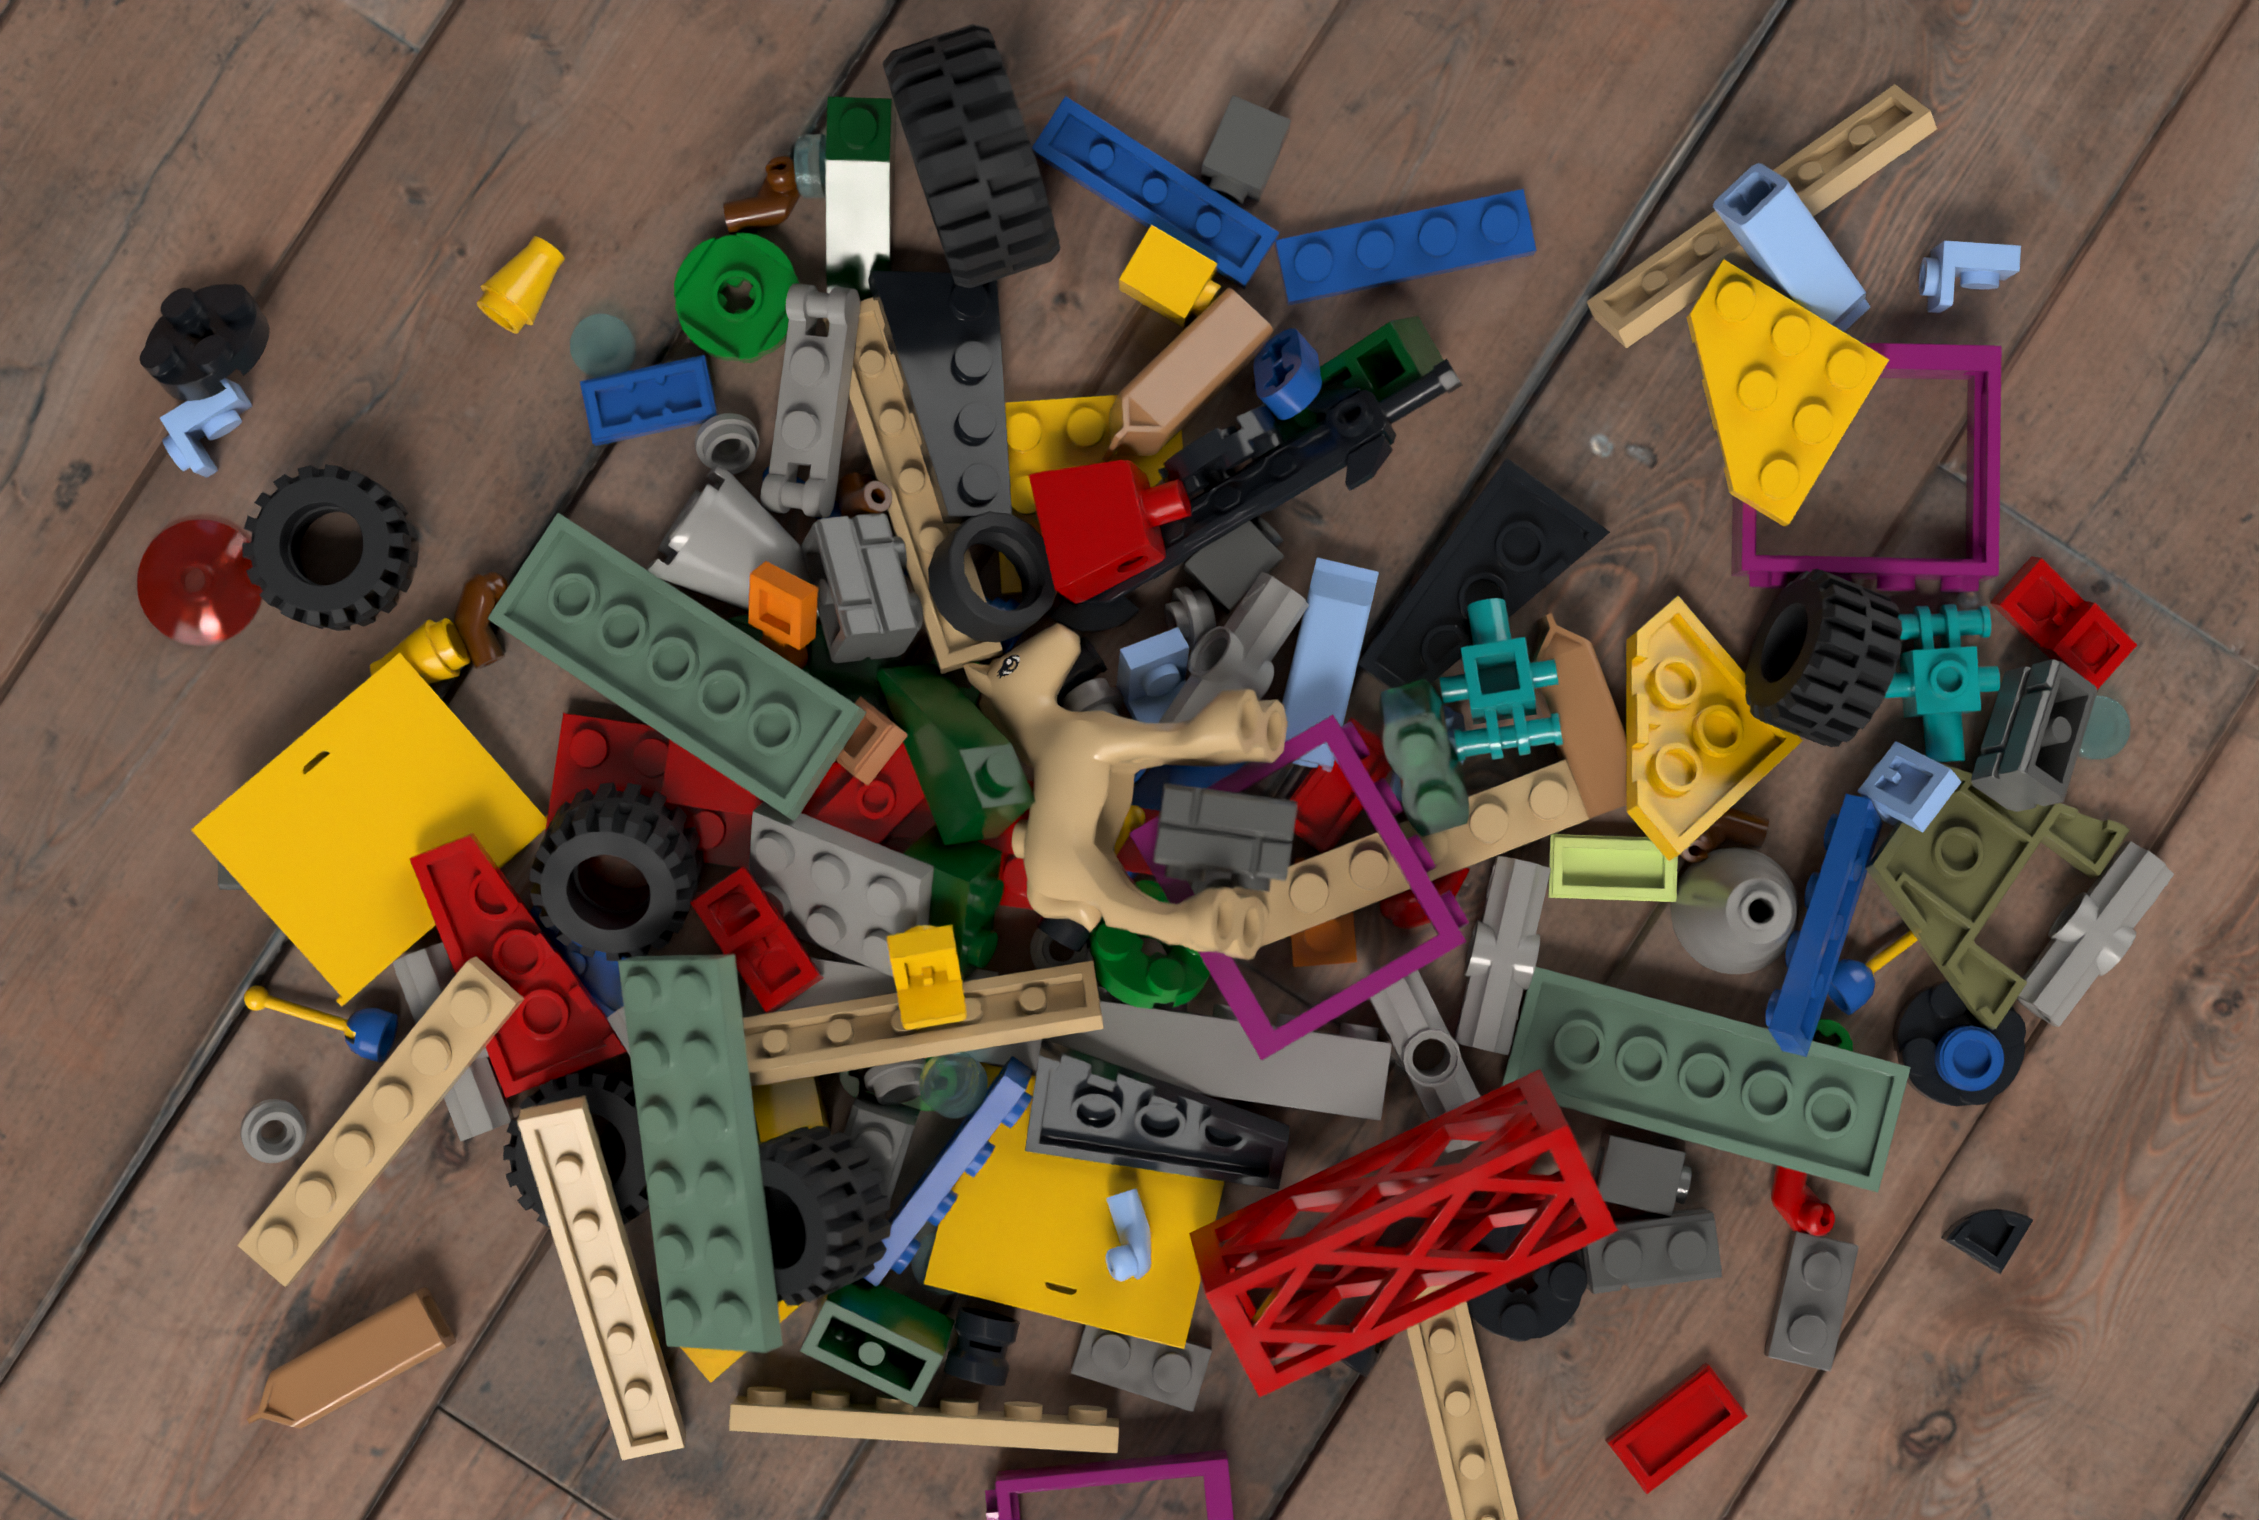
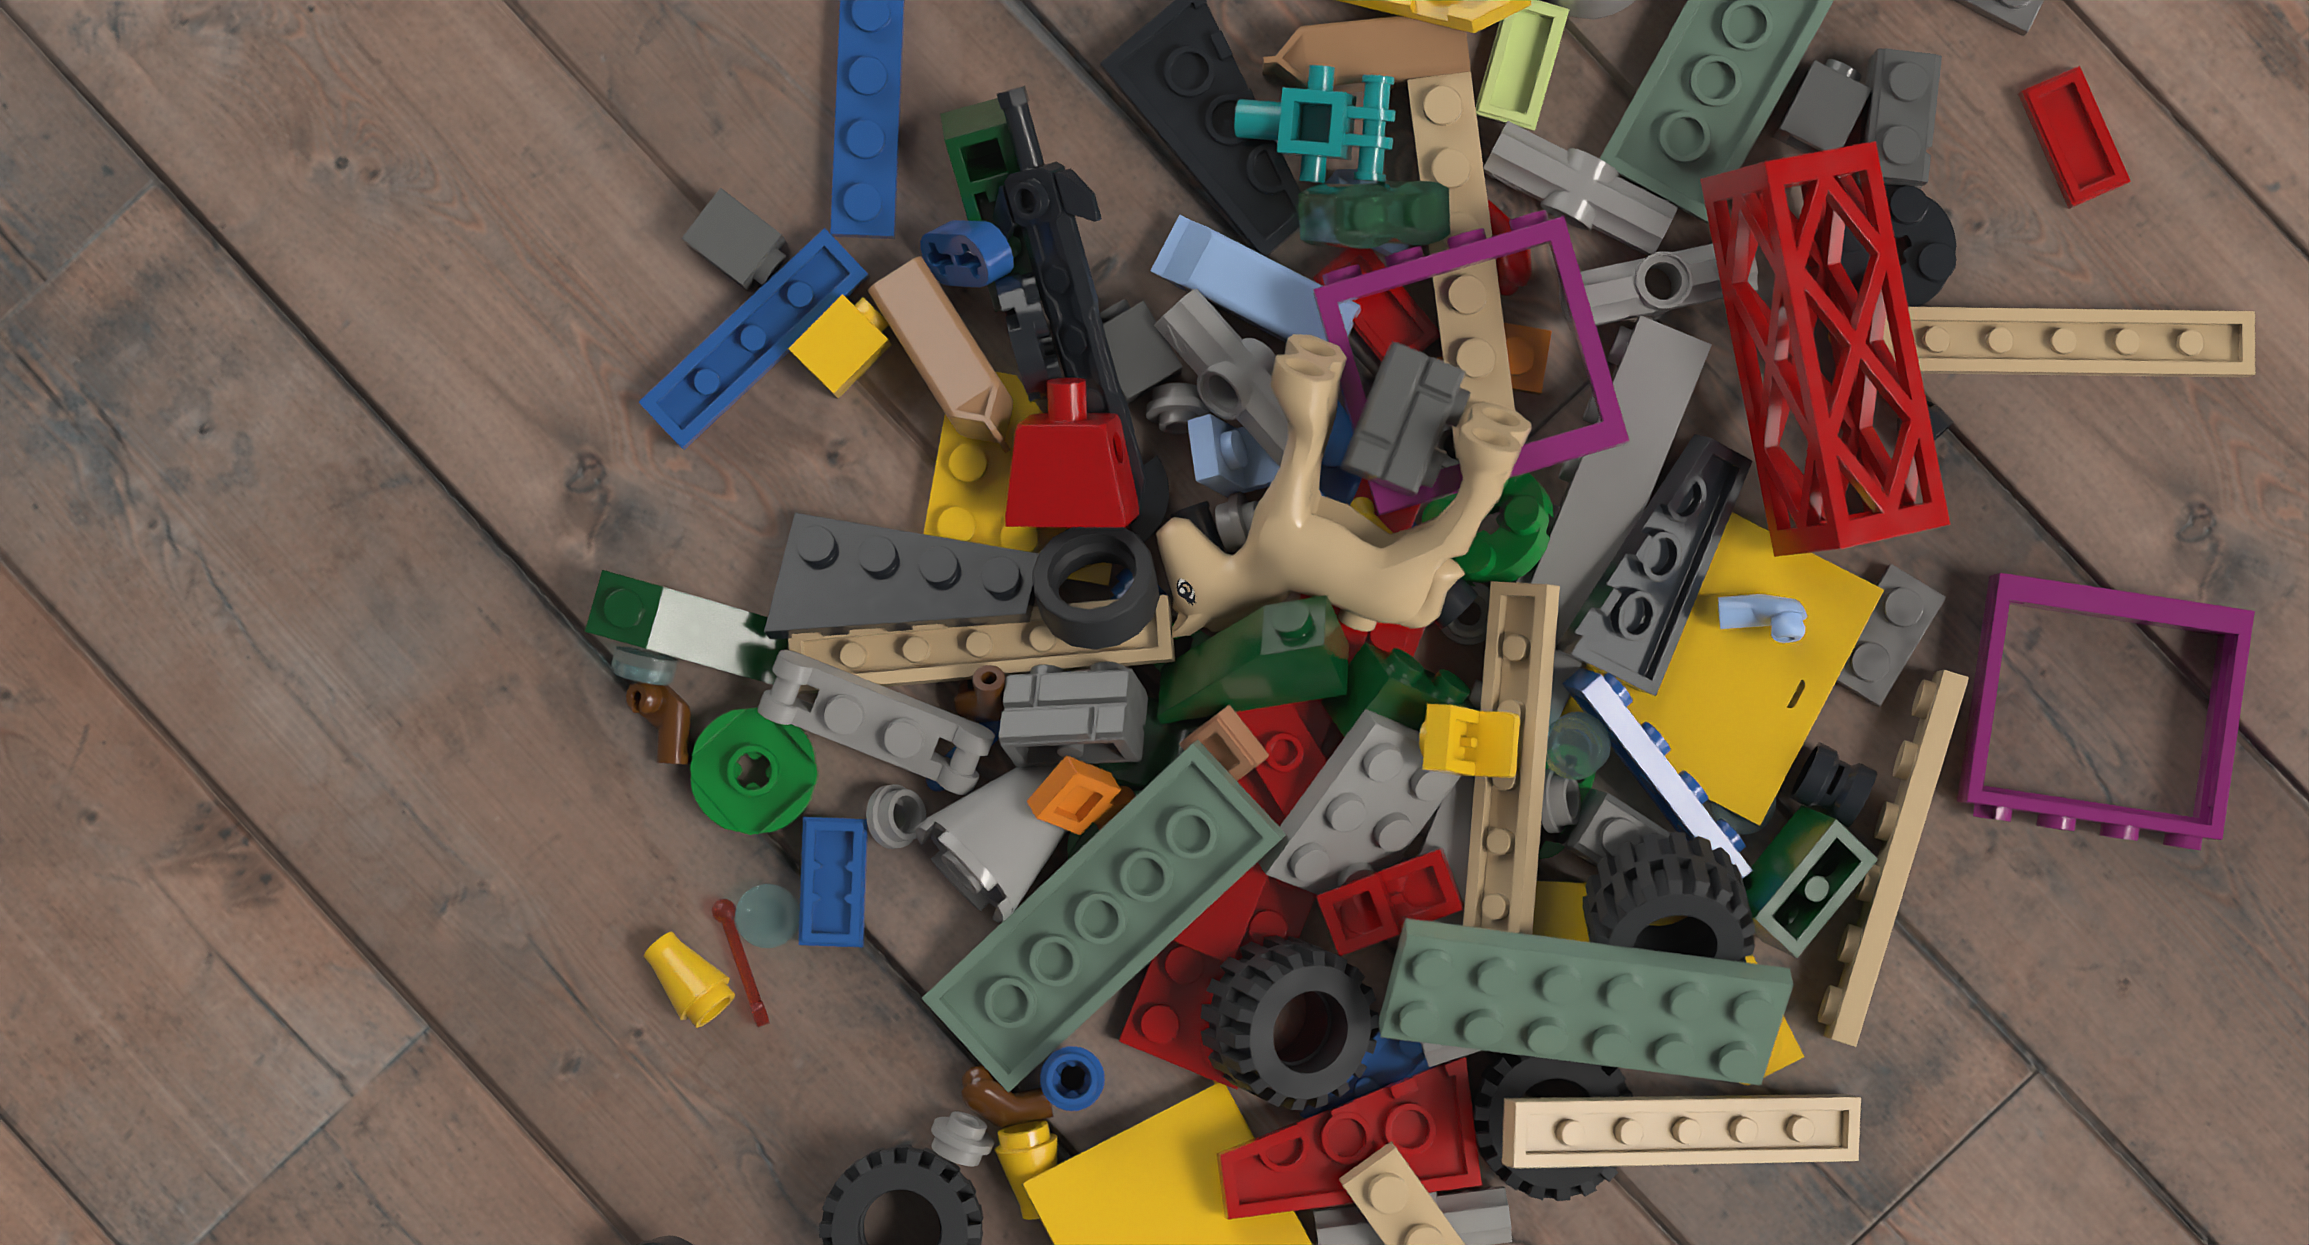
camera: 75 degrees left, 0 degrees up
(432, 585) = (961, 1138): none -> light grey plate
(497, 670) = (1068, 1097): none -> blue cone
(595, 303) = (724, 912): none -> clear red hinge
(972, 155) = (683, 502): black tyre -> none

